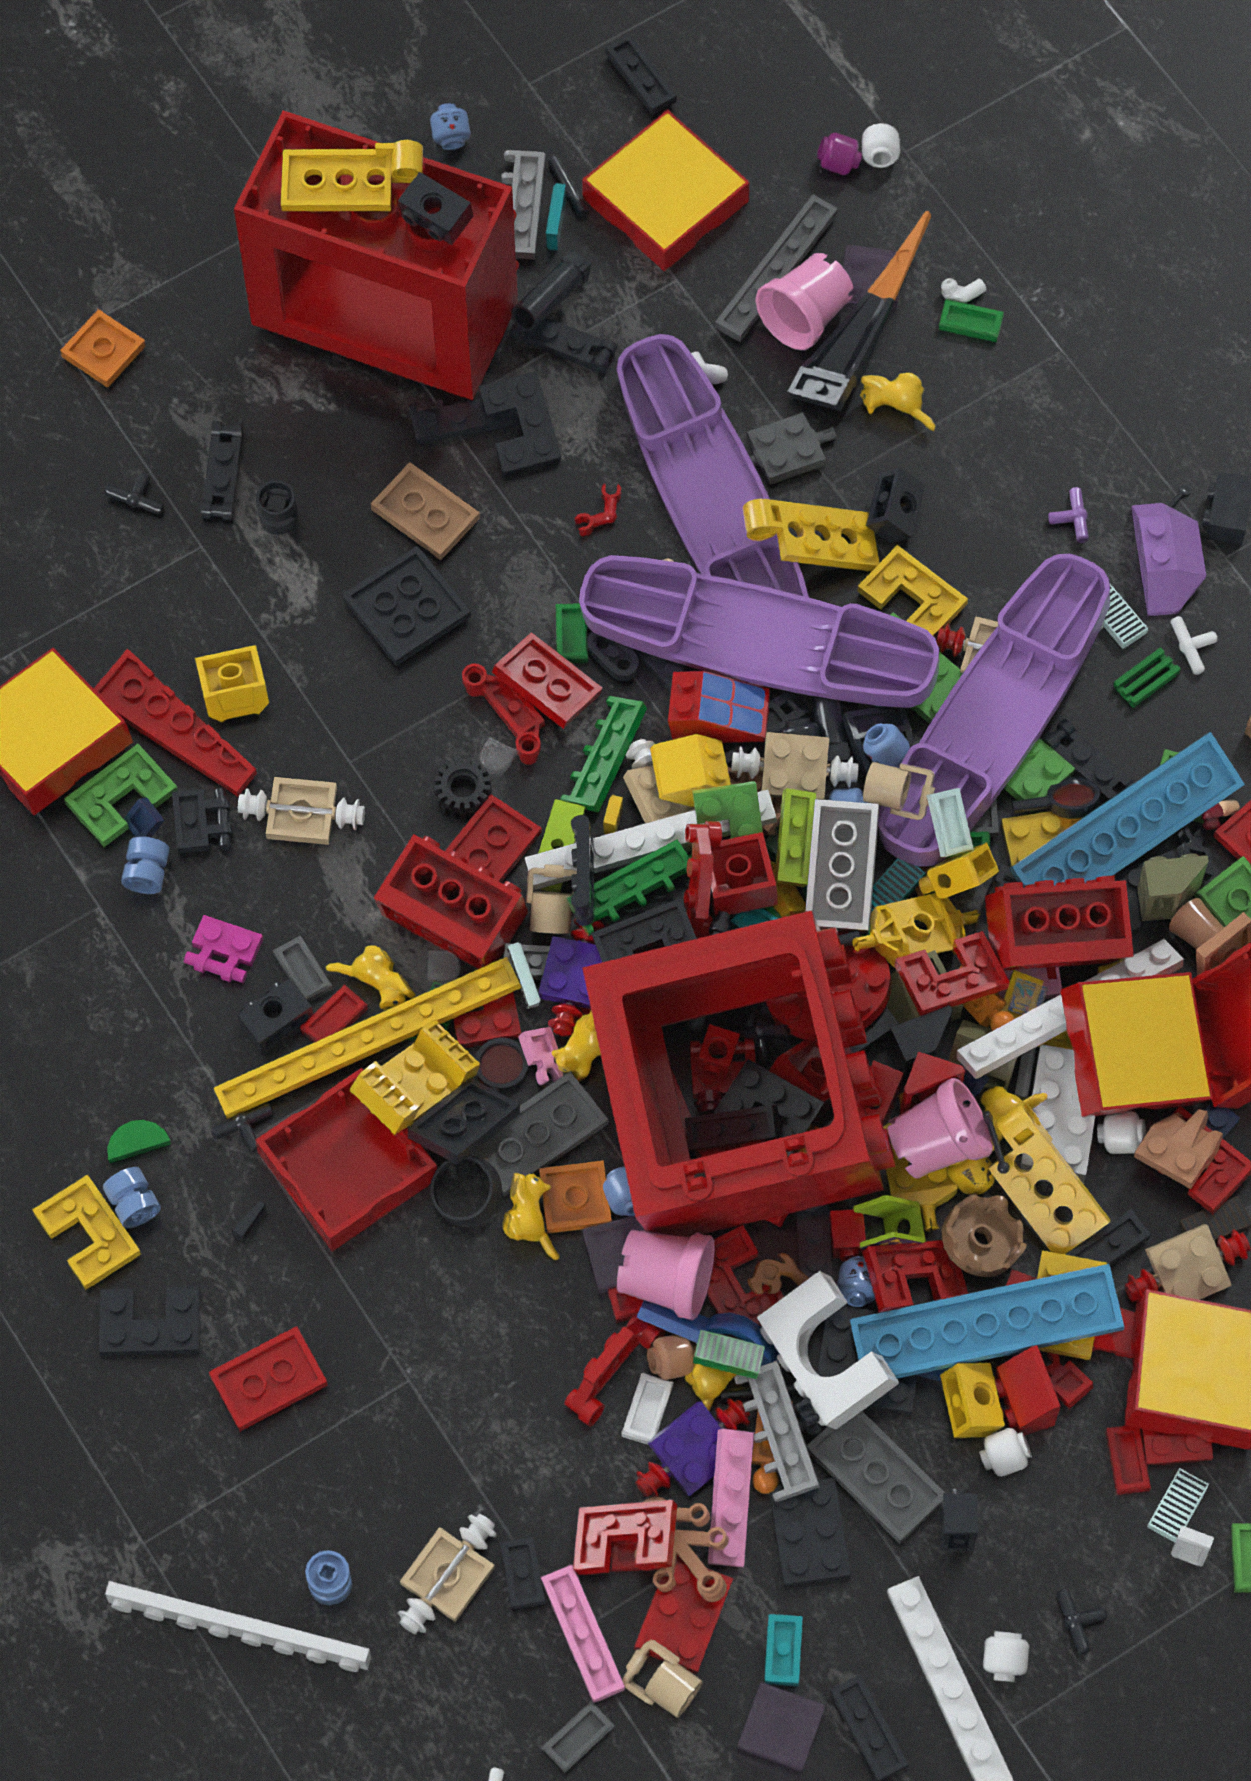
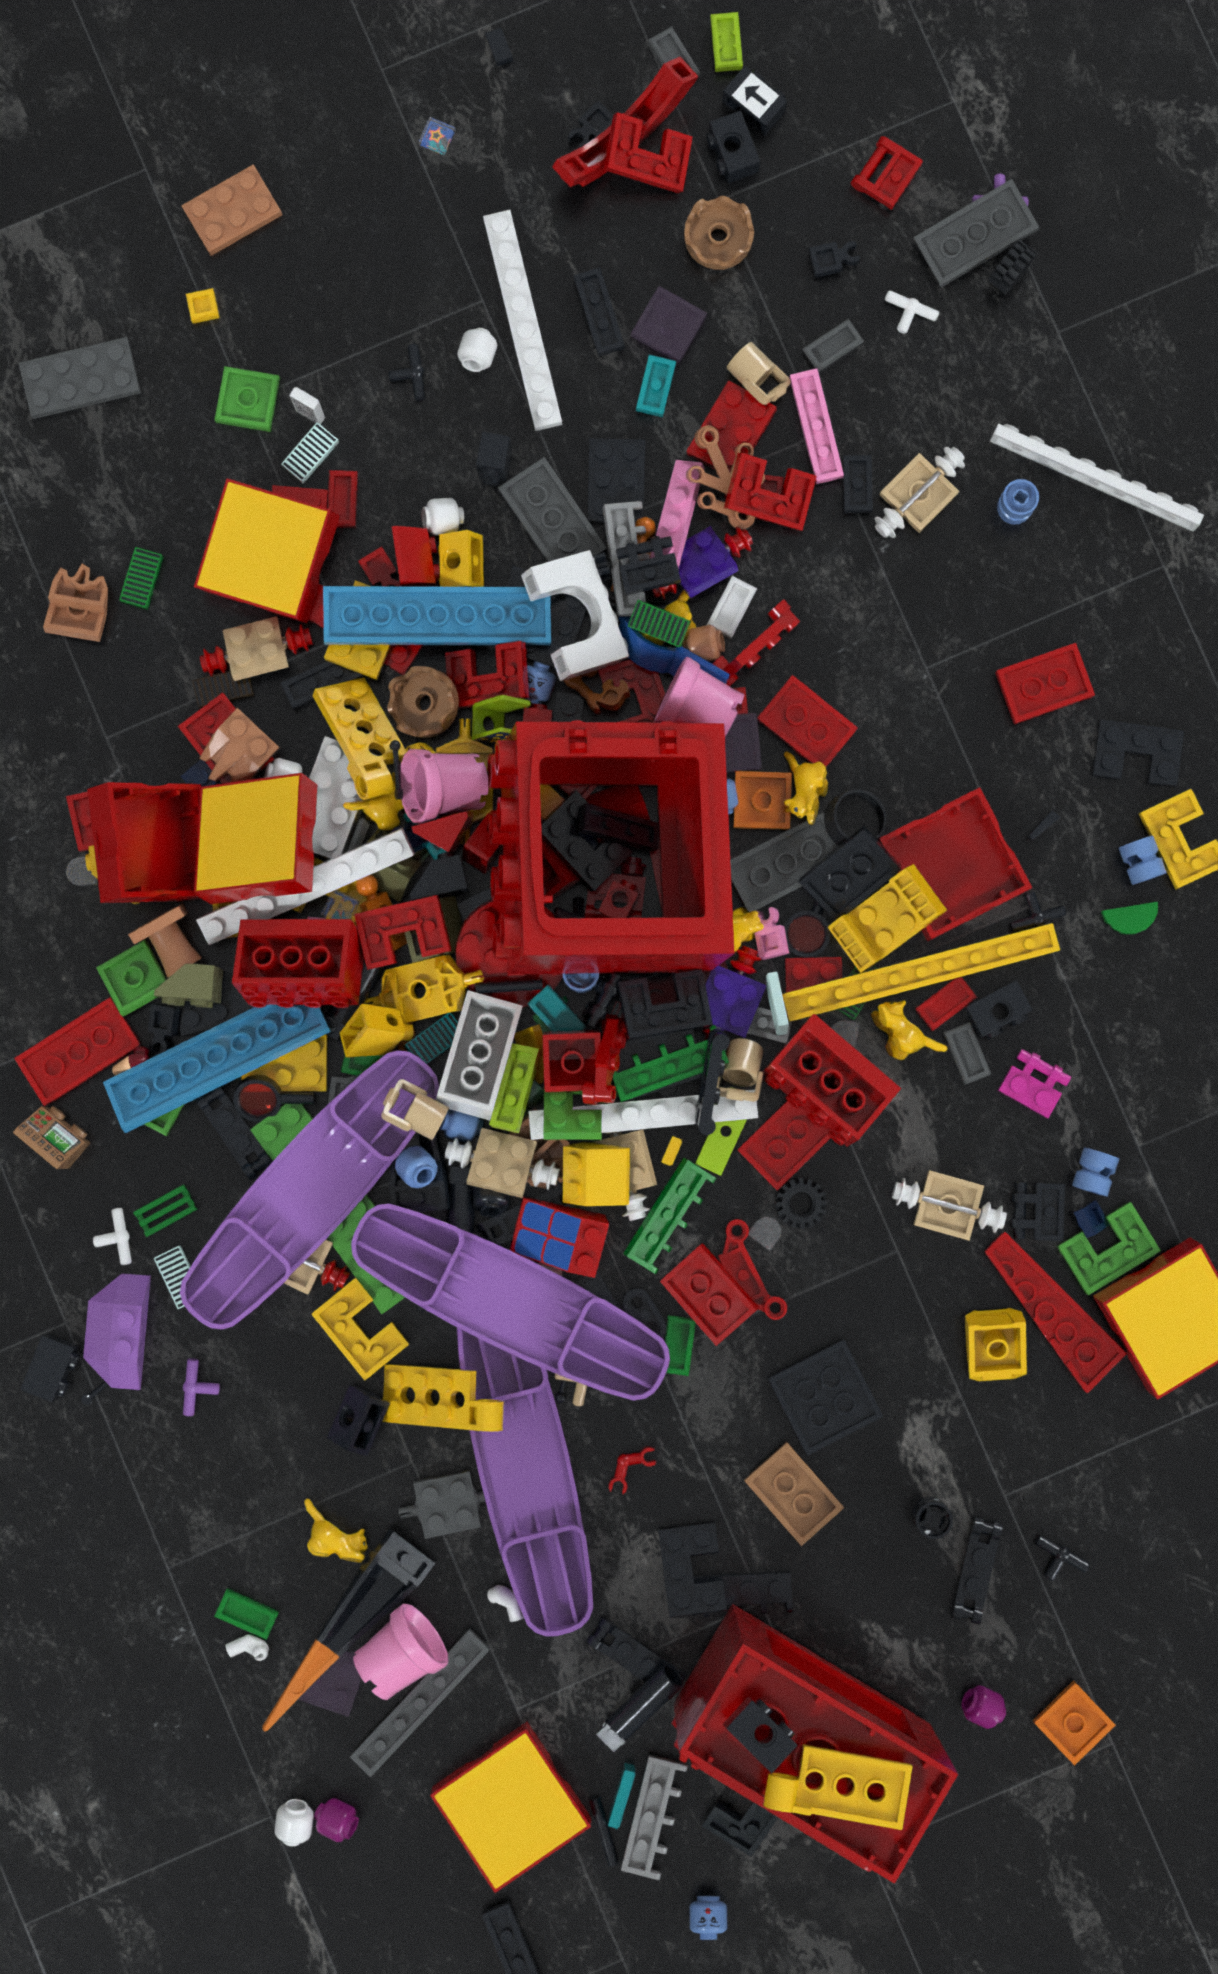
camera: 170 degrees left, 20 degrees up
(198, 347) = (983, 1707): none -> magenta head
(538, 1289) = (806, 723): none -> red plate
(749, 1406) = (648, 573): none -> black plate
(950, 822) = (375, 1070): light aqua tile -> none

